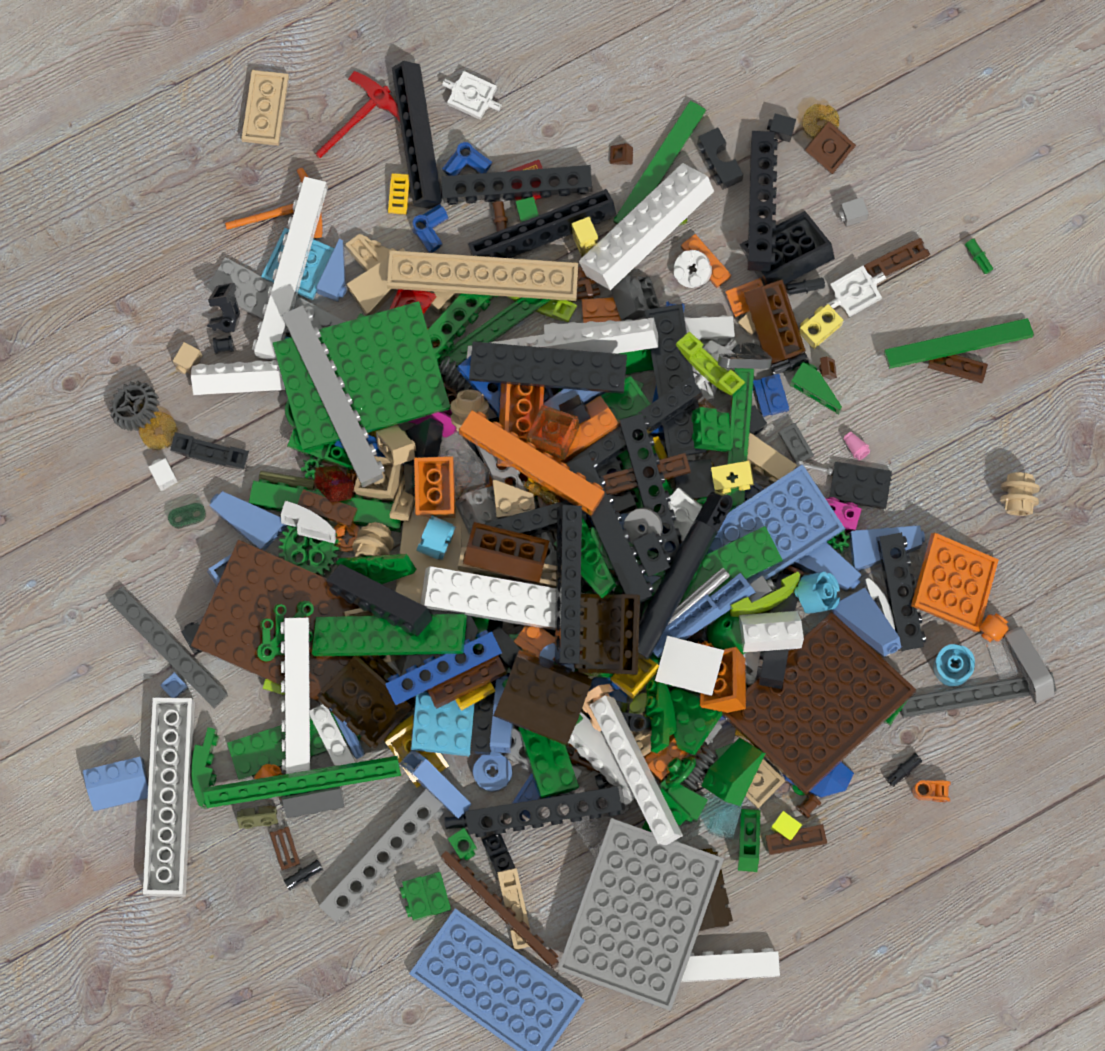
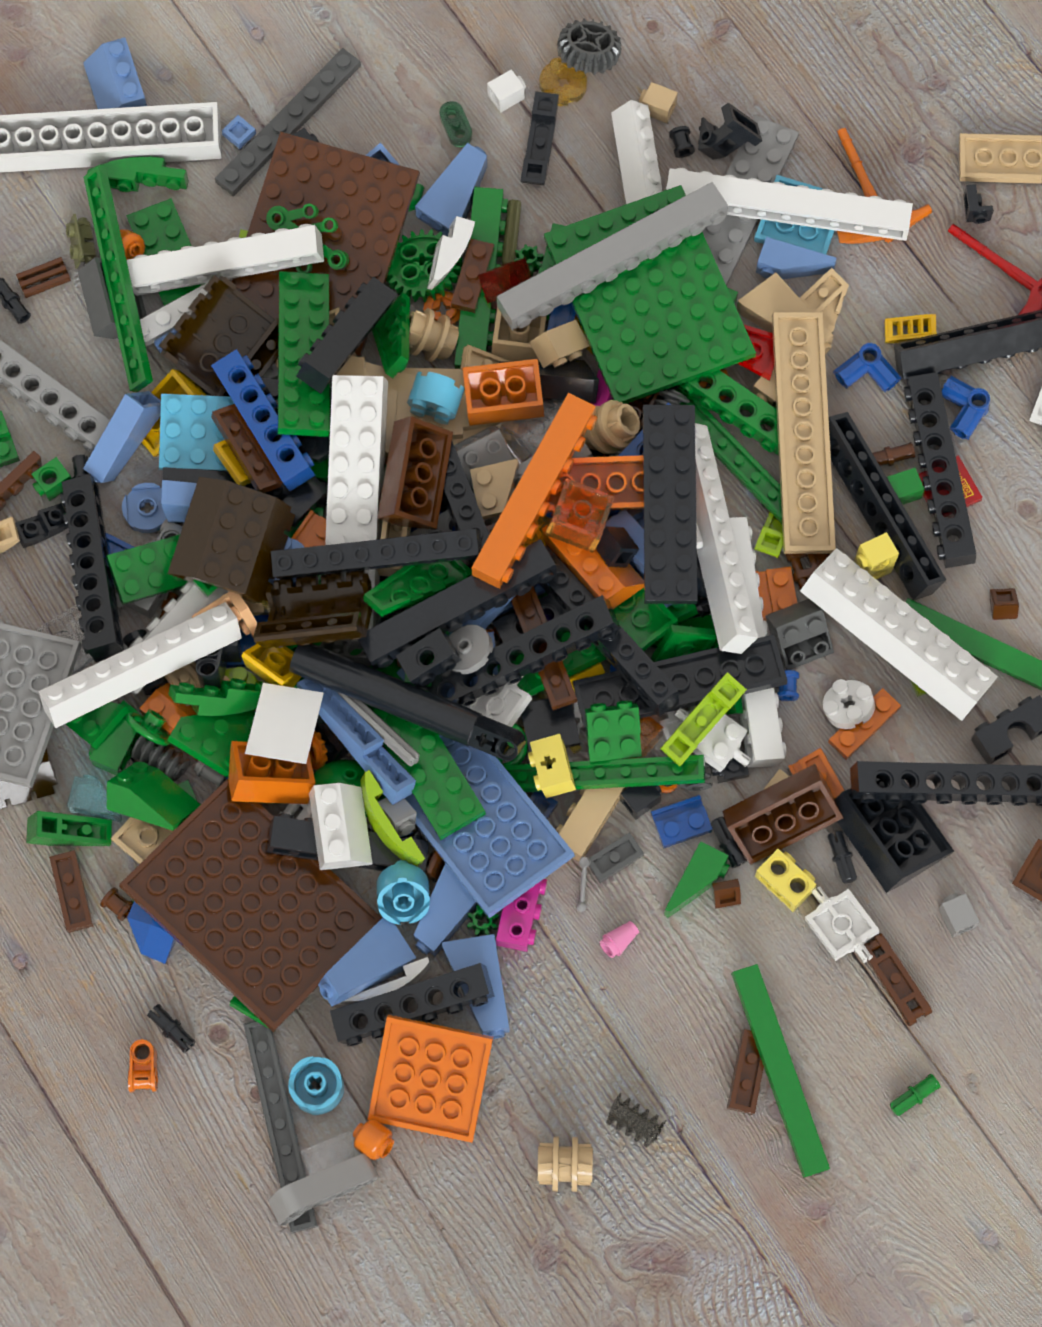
camera: 85 degrees right, 5 degrees down
(300, 137) = (973, 206): none -> black bracket
(645, 376) = (683, 641): none -> green tile
(751, 357) = (718, 787): dark grey beam -> none
(786, 826) = (88, 876): neon yellow panel -> none
(860, 485) = (564, 949): black plate -> none
(988, 444) = (634, 1121): none -> clear smoke piece

